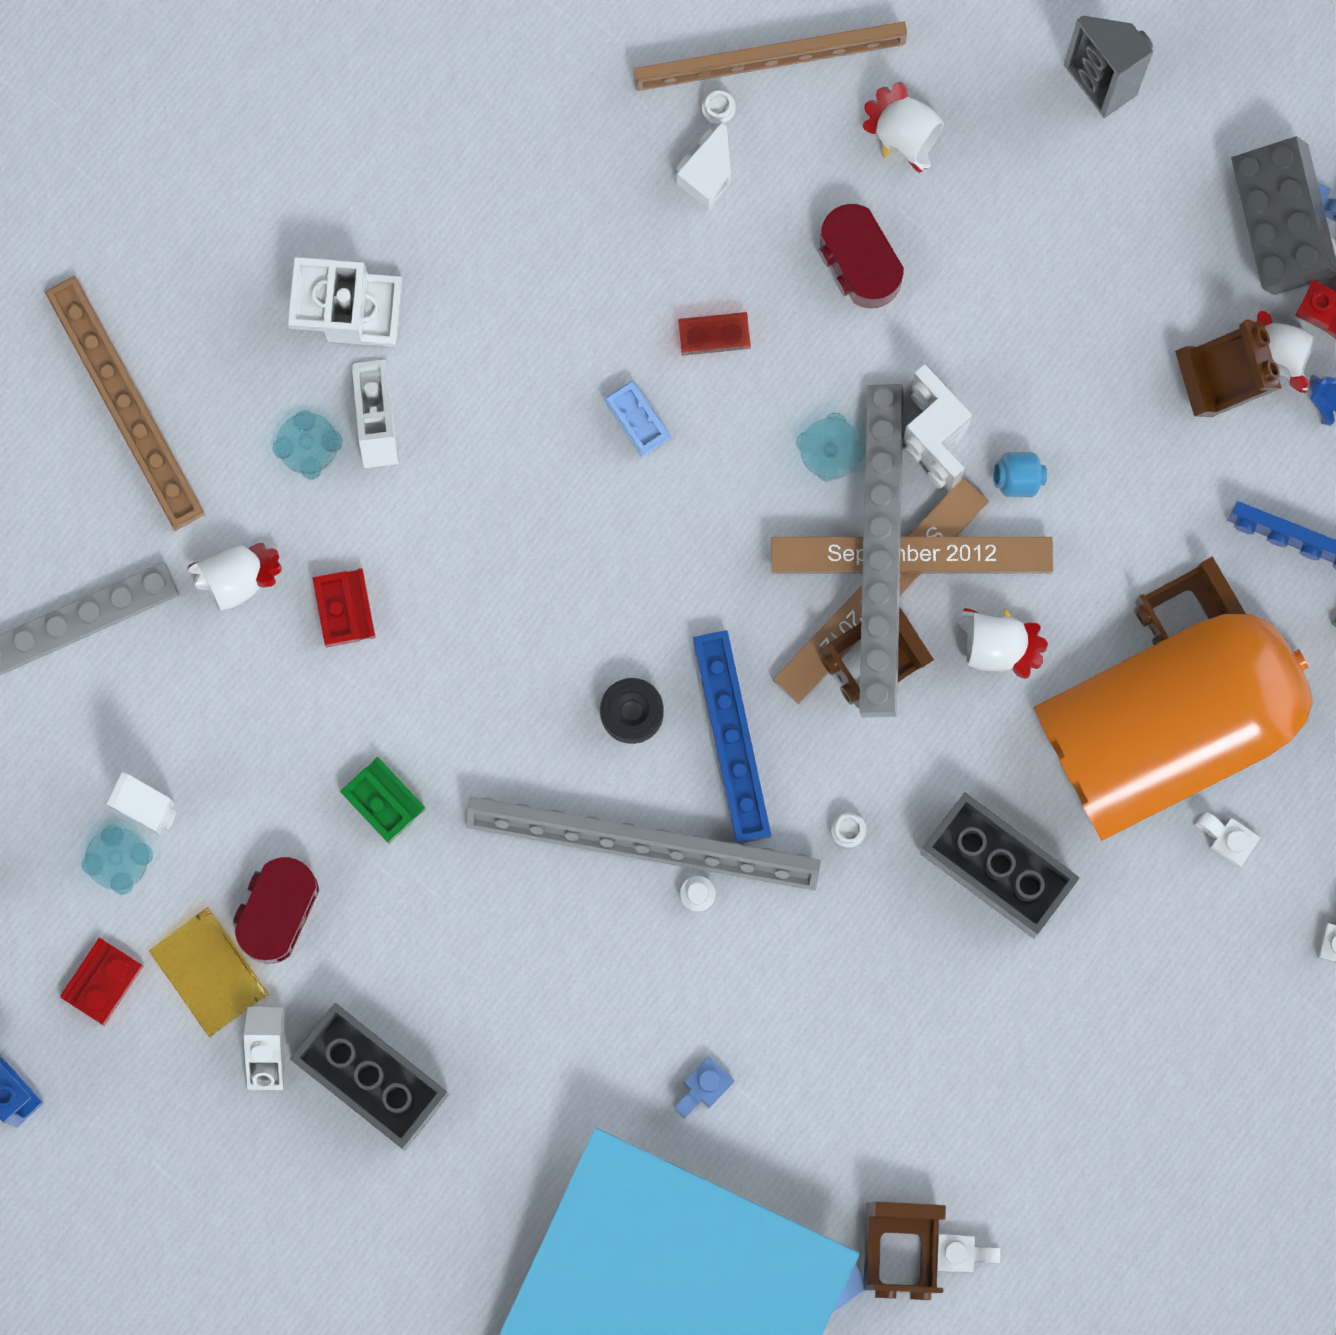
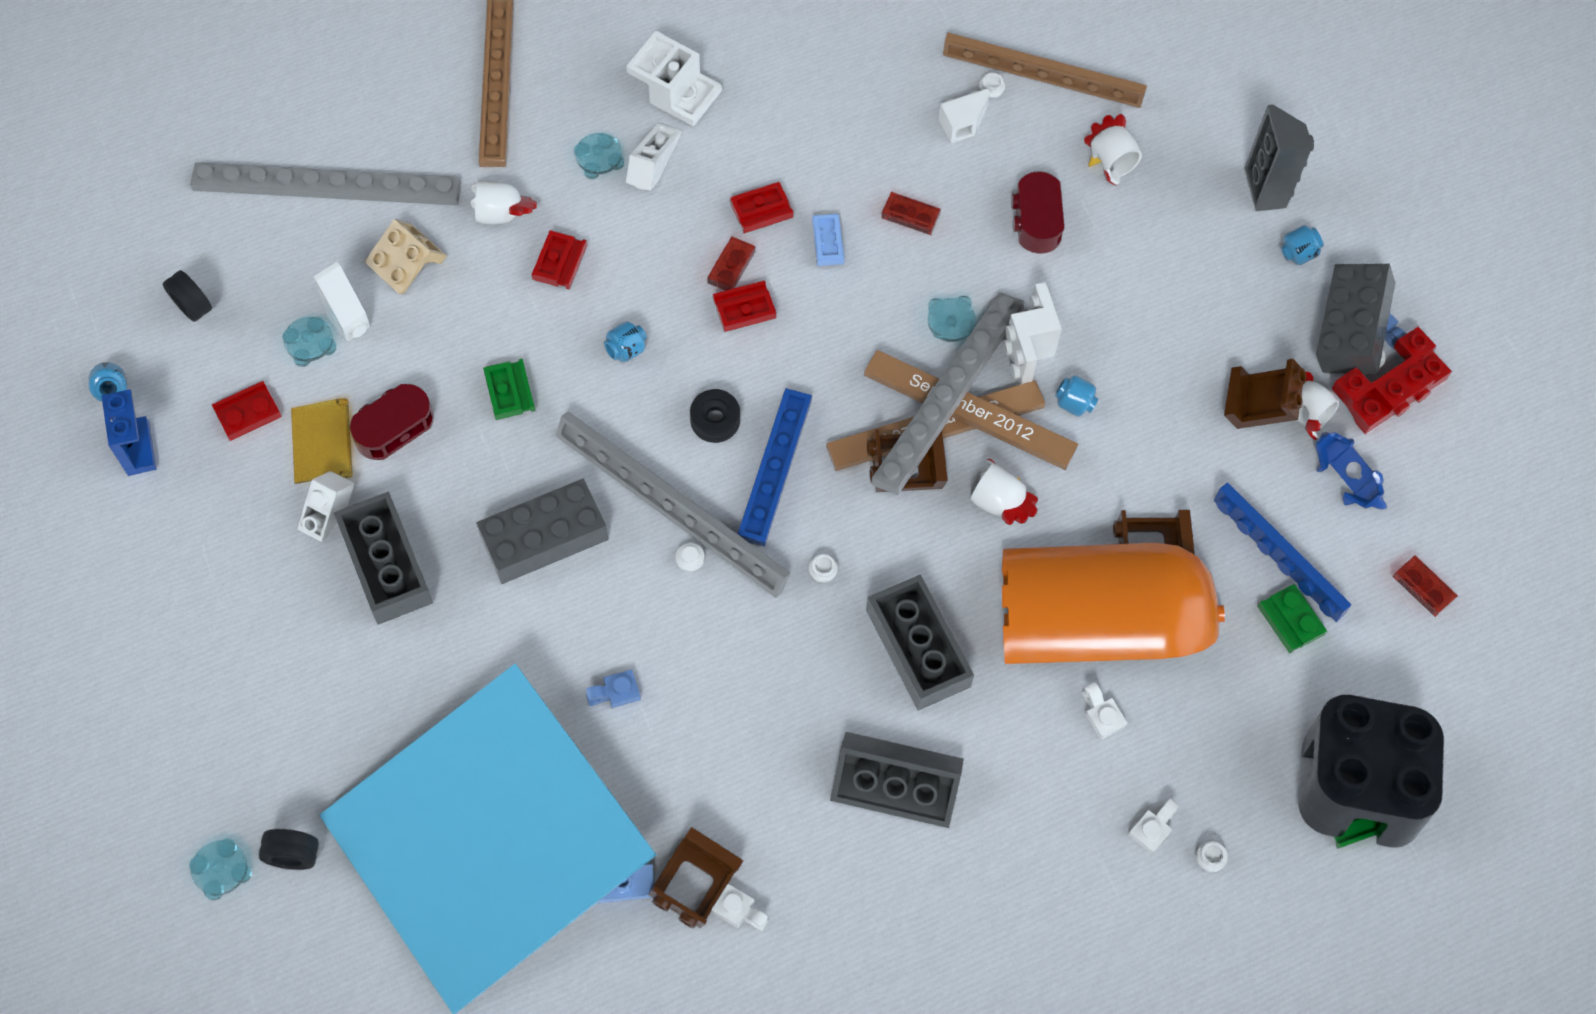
camera: 25 degrees right, 15 degrees down
(161, 697) = (402, 255): none -> tan bracket
(481, 674) = (625, 341): none -> dark azure head
(522, 951) = (542, 531): none -> dark grey brick
(538, 416) = (761, 207): none -> red plate
(544, 509) = (731, 264): none -> clear red plate
(588, 555) = (744, 306): none -> red plate
(1053, 1028) = (897, 779): none -> dark grey slope
(1179, 144) = (1302, 245): none -> dark azure head

